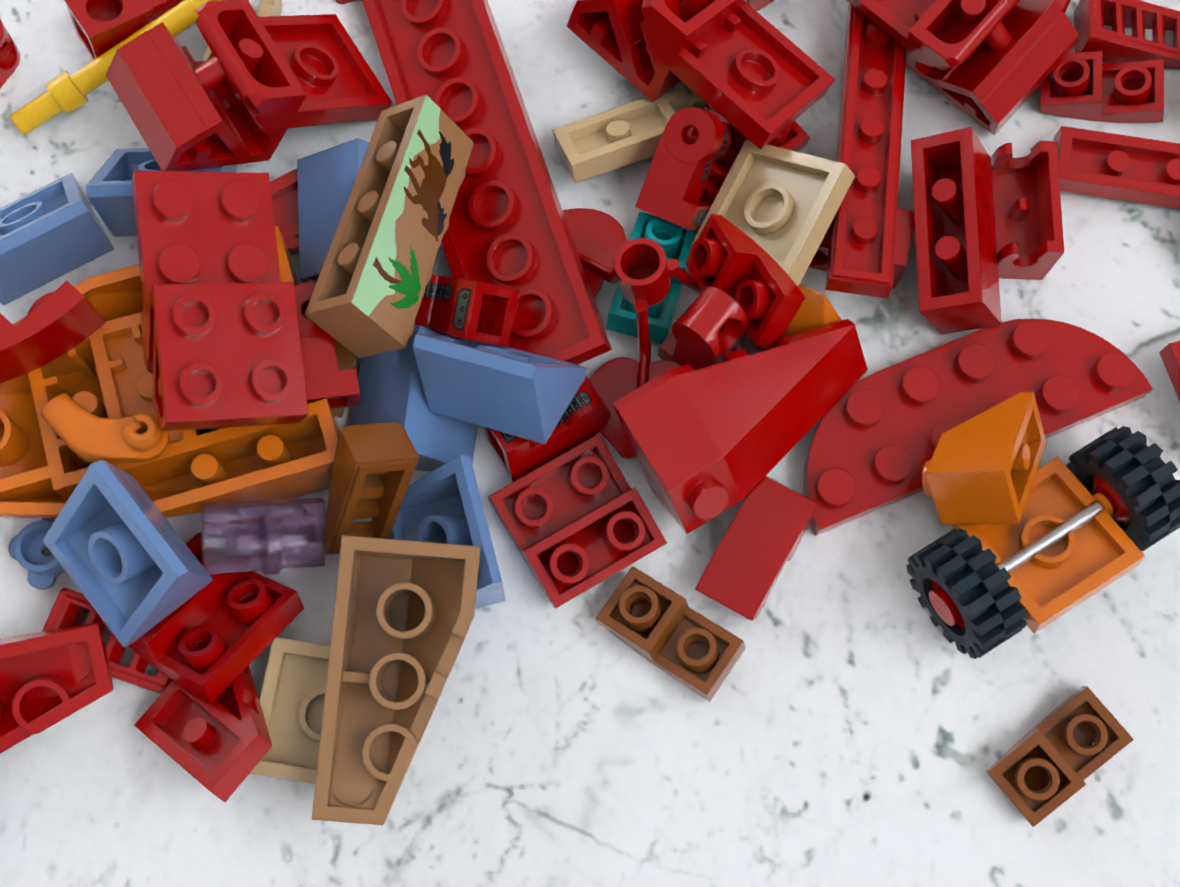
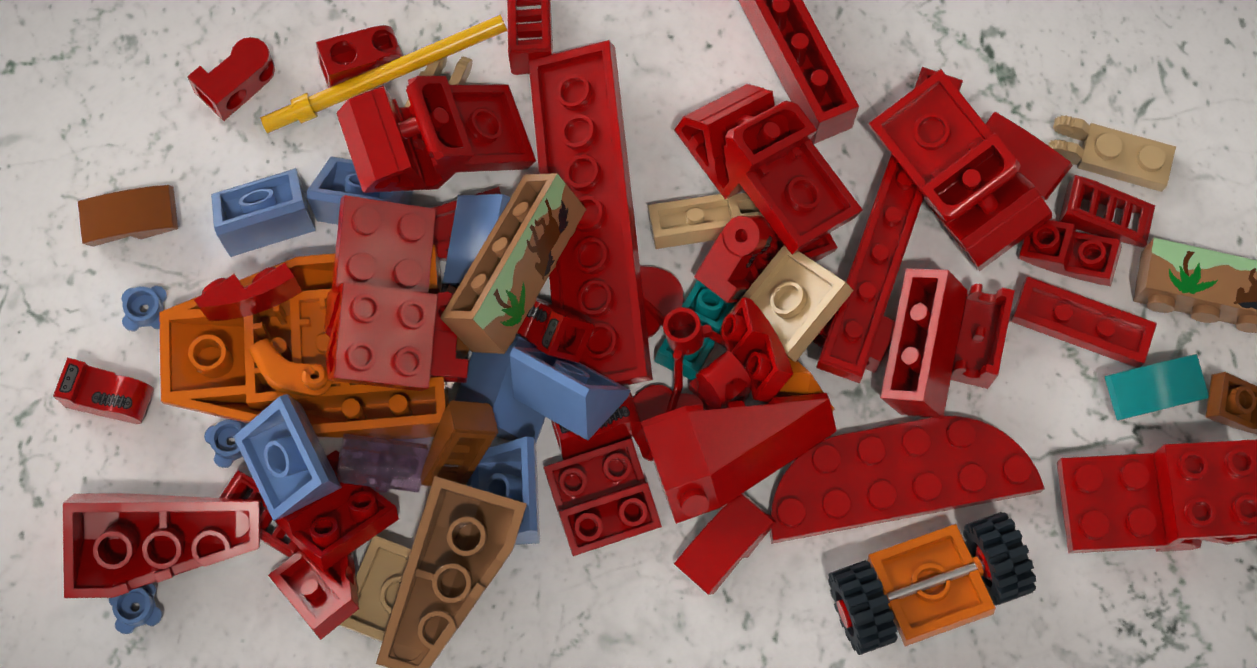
camera: 15 degrees right, 0 degrees up
(670, 633) = (650, 591): dark orange slope -> none
(987, 464) = (902, 518): orange slope -> none

